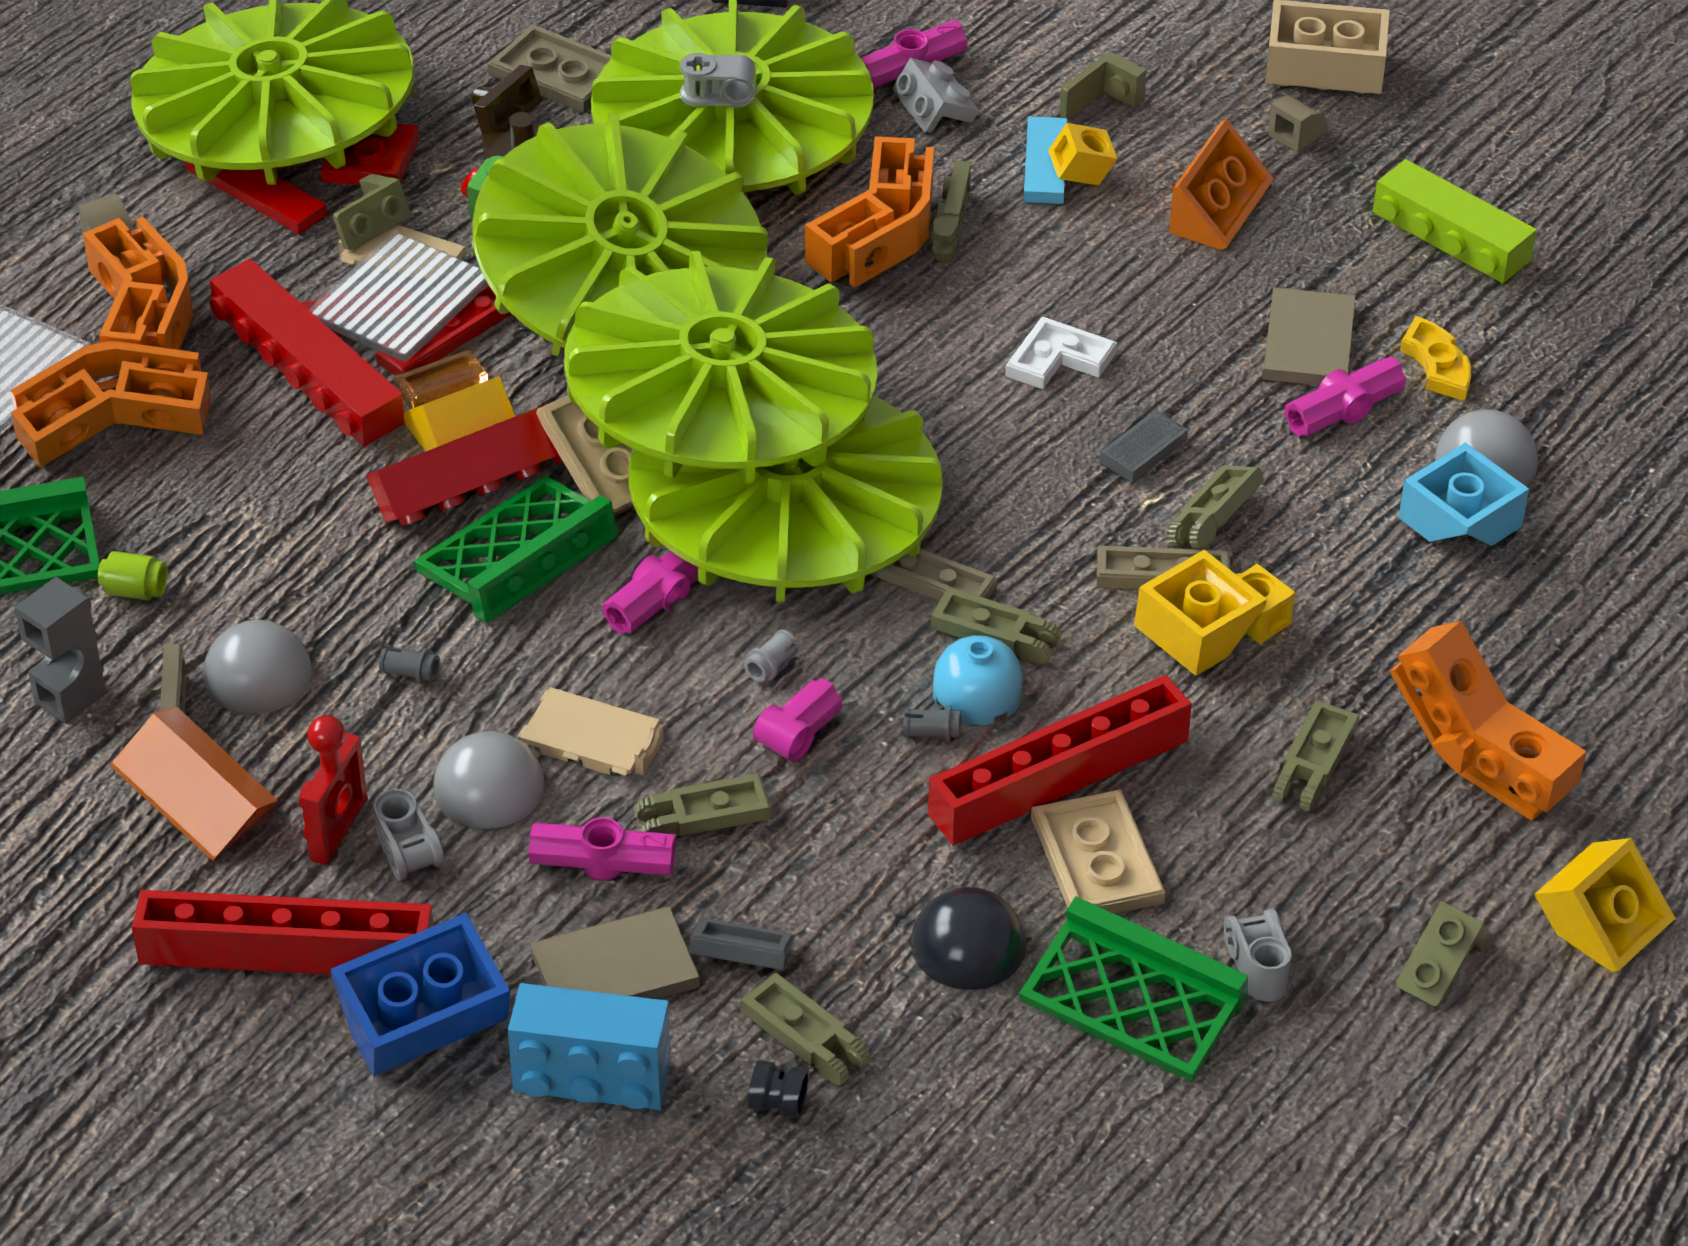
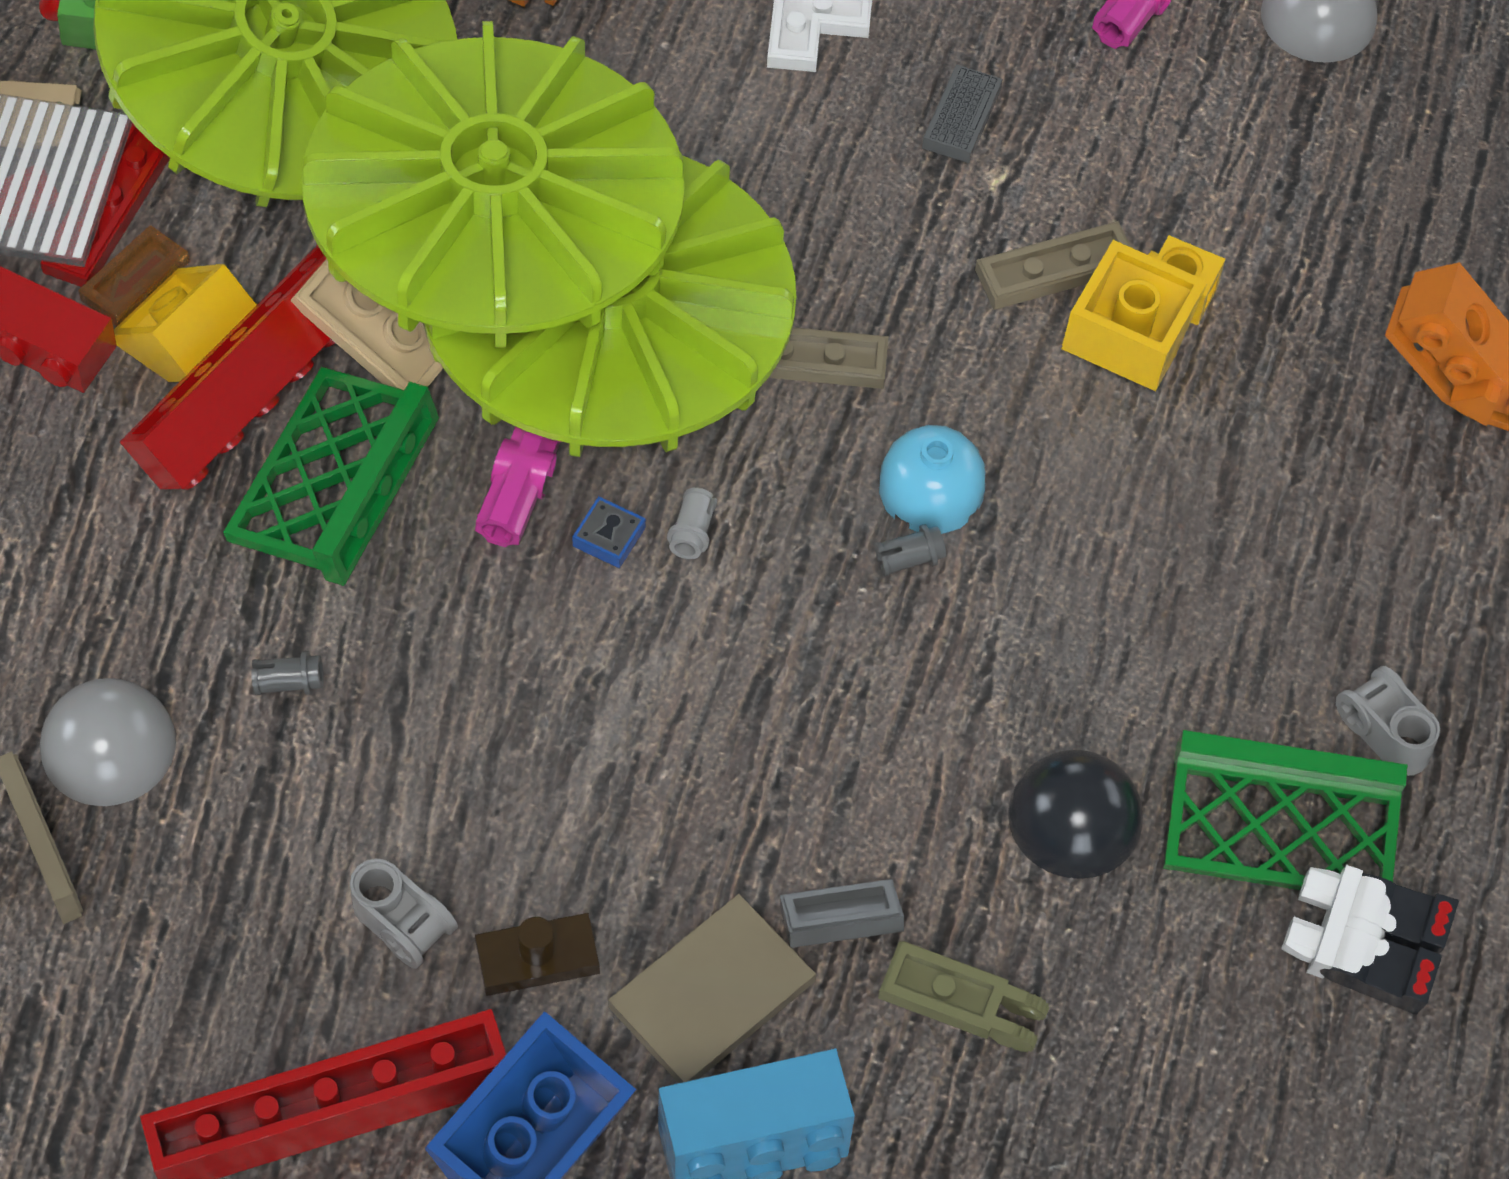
camera: 25 degrees left, 15 degrees up
(192, 781) = (120, 933): orange slope -> none
(336, 791) = (296, 912): red plate -> none
(488, 781) = (451, 800): light grey piece -> none
(496, 898) = (537, 953): none -> dark brown tile
(593, 732) = (539, 692): tan piece -> none
(602, 848) = (596, 854): dark pink piece -> none
(704, 645) = (609, 532): none -> tile
(705, 806) = (716, 748): olive hinge -> none
(778, 1089) = (974, 1088): black wheel -> none
(792, 727) = (762, 609): dark pink piece -> none
(969, 615) = (917, 400): olive hinge -> none
(1058, 759) = (1075, 557): red brick -> none
(1098, 852) = (1160, 655): tan tile -> none
(1158, 1088) = (1372, 935): none -> hips
(1213, 506) = (1078, 168): olive hinge -> none
(1316, 752) = (1327, 446): olive hinge -> none
(1462, 497) = (1337, 82): medium azure slope -> none

